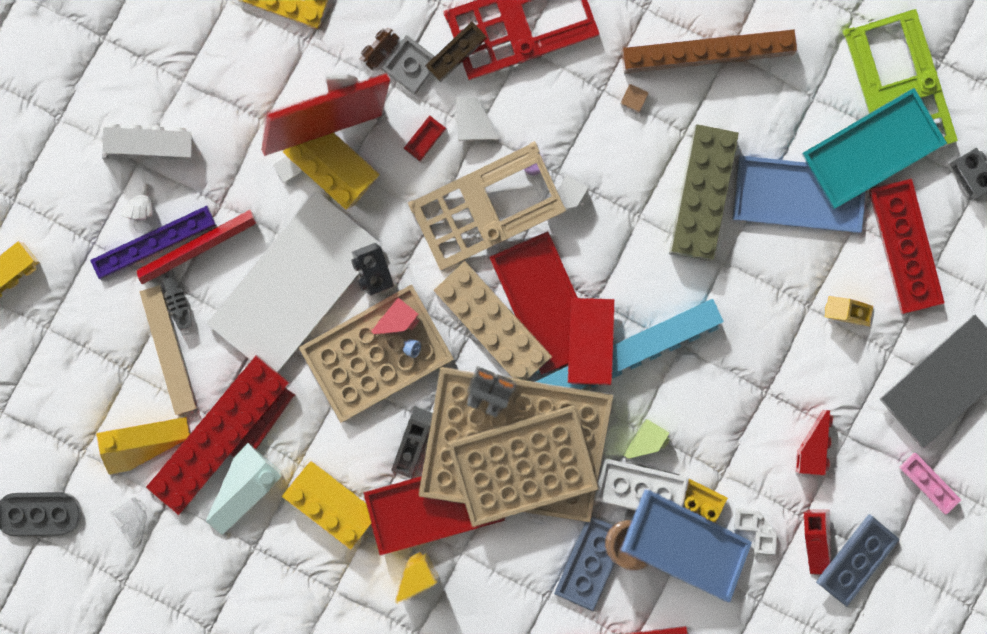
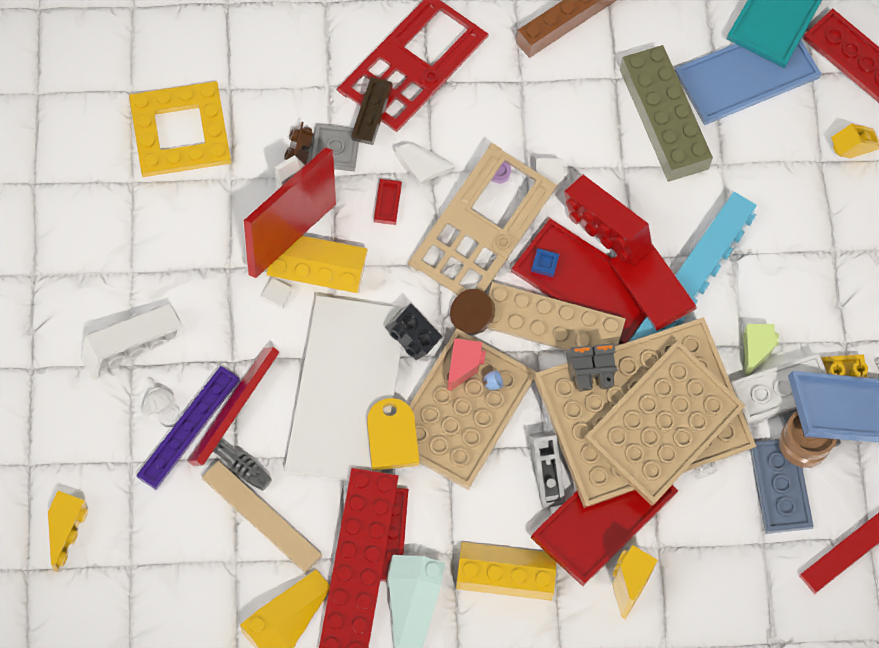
camera: 35 degrees left, 20 degrees down
(304, 348) = (392, 437): none -> yellow tile
(432, 277) = (472, 311): none -> reddish brown tile
(519, 268) = (545, 262): none -> blue tile
(587, 266) = (608, 220): none -> red brick
(634, 98) = (552, 71): medium nougat tile -> none

